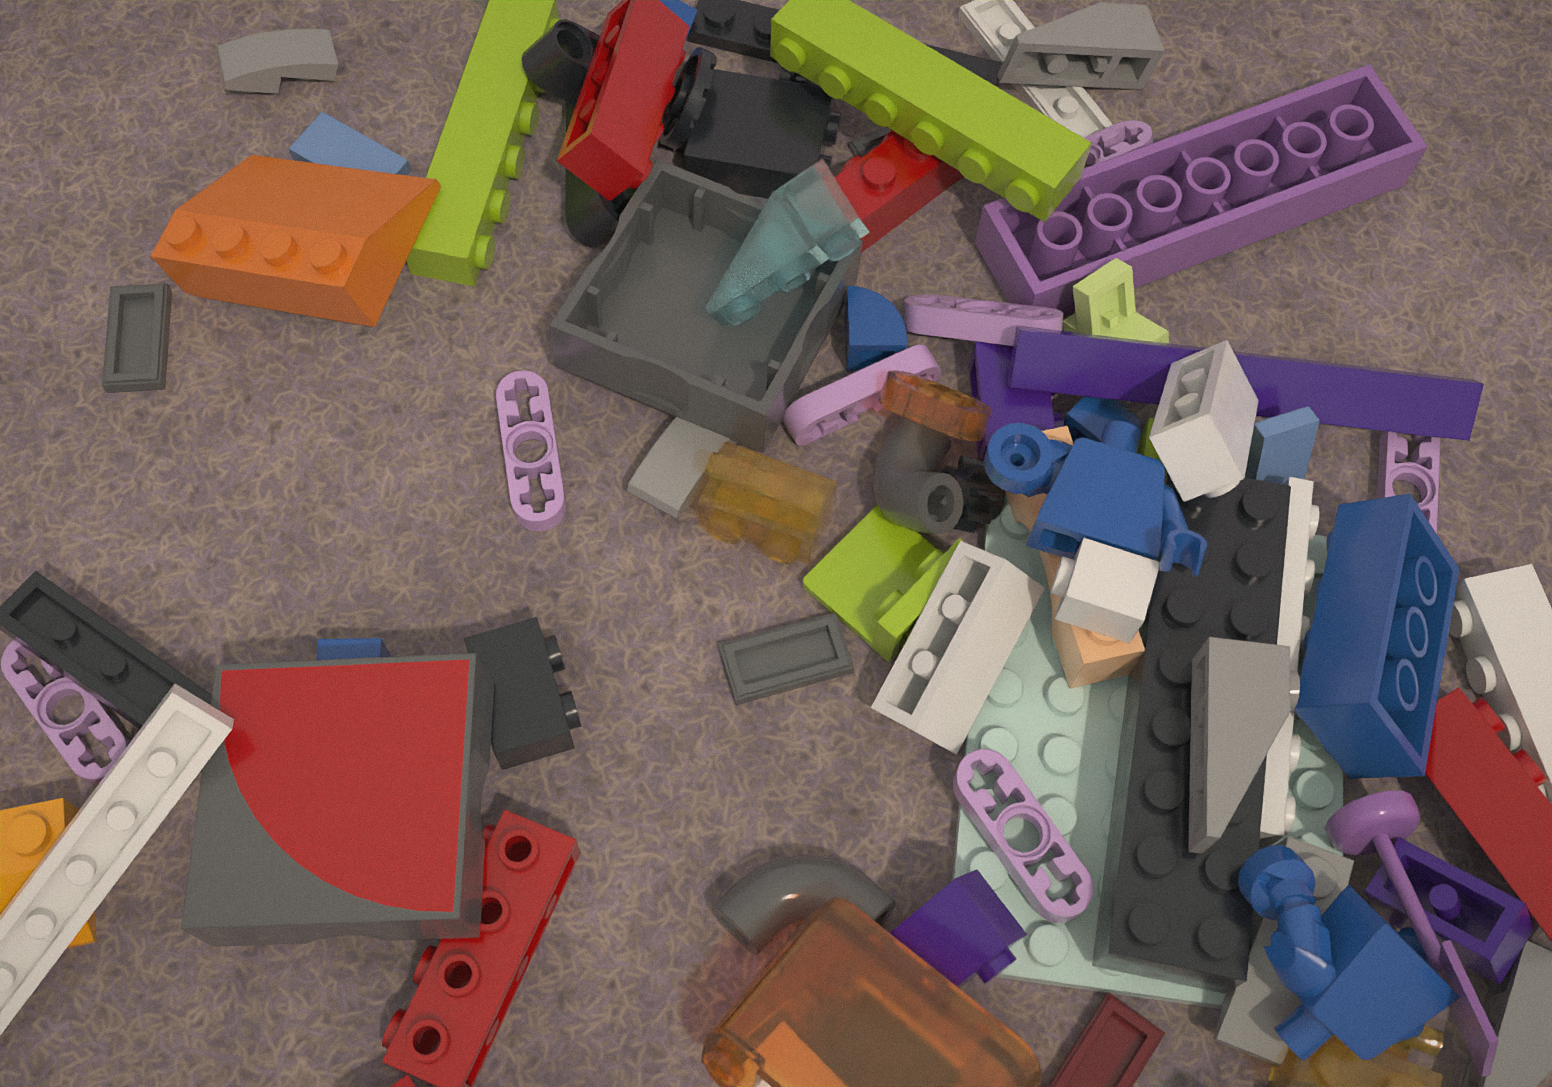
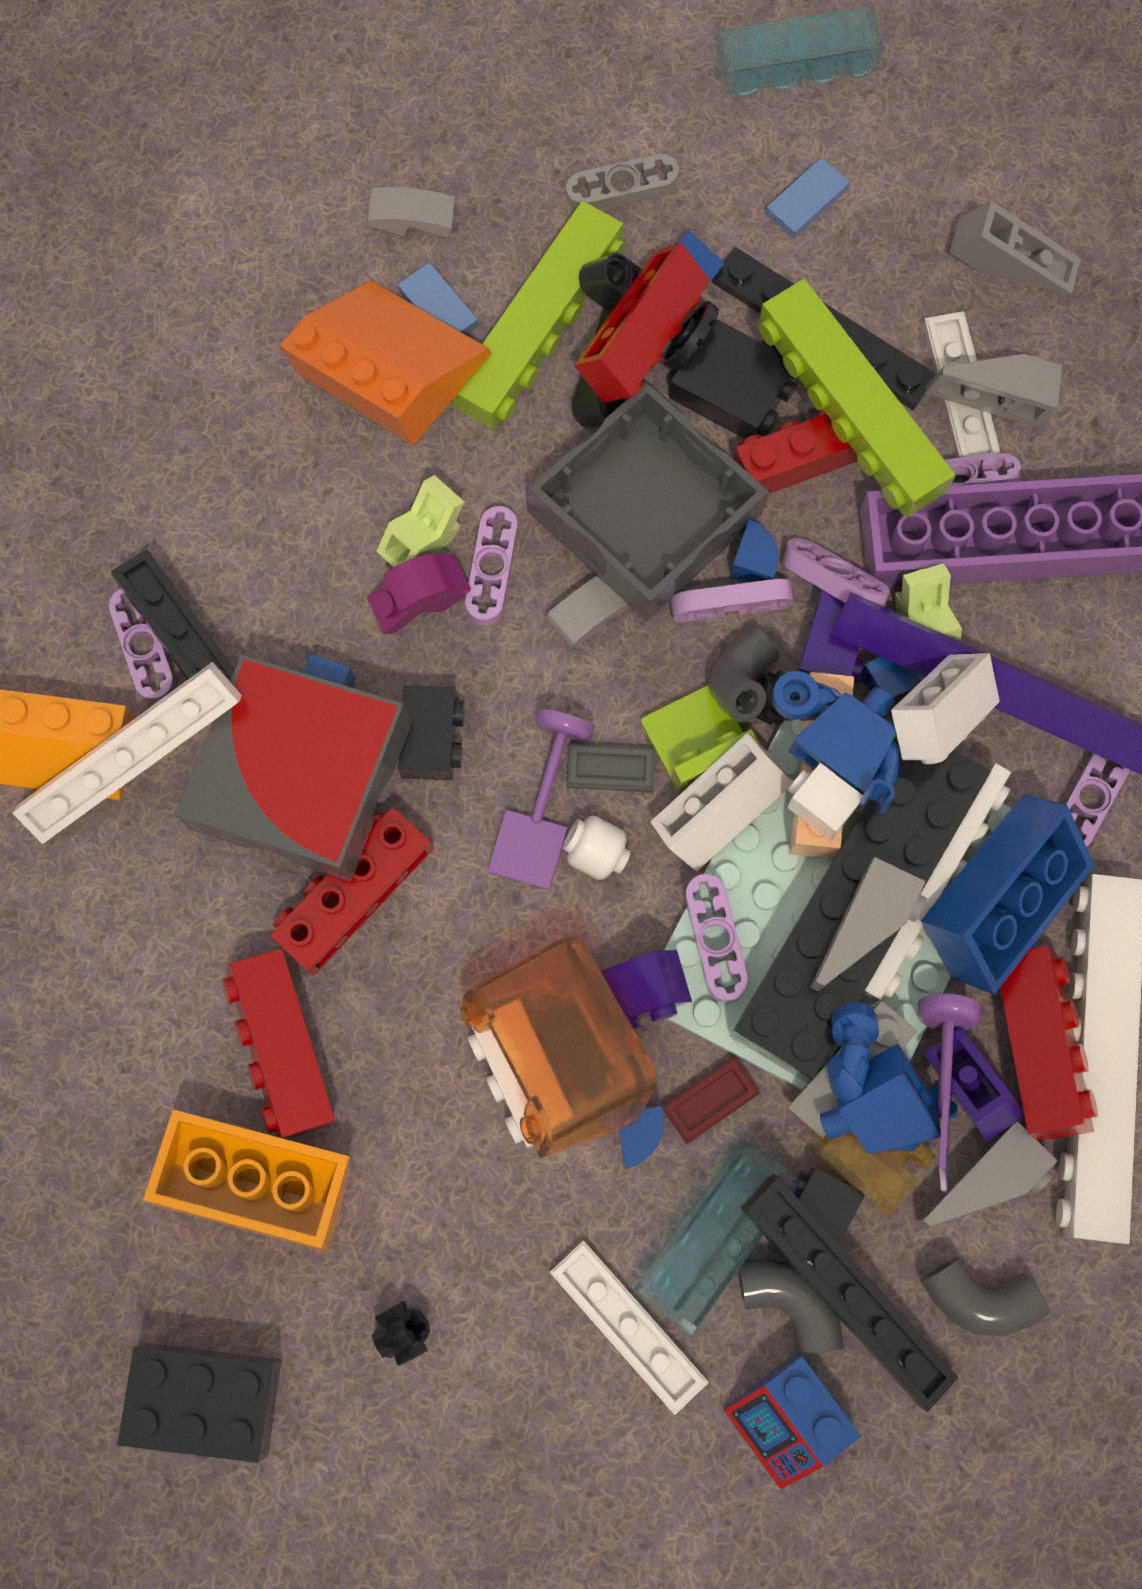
camera: 25 degrees right, 10 degrees up
(137, 338) = (255, 396): dark grey tile -> none
(426, 430) = (426, 527): none -> yellowish green brick
(437, 502) = (415, 587): none -> magenta brick
(710, 801) = (527, 845): none -> medium lavender piece
(765, 504) = (634, 658): clear yellow brick -> none
(789, 892) = (556, 919): dark grey cylinder -> none
(793, 234) = (718, 474): clear light blue slope -> none
(808, 769) = (596, 847): none -> white head
(935, 405) = (774, 628): clear orange beam -> none
(1282, 446) = (1001, 742): medium blue tile -> none

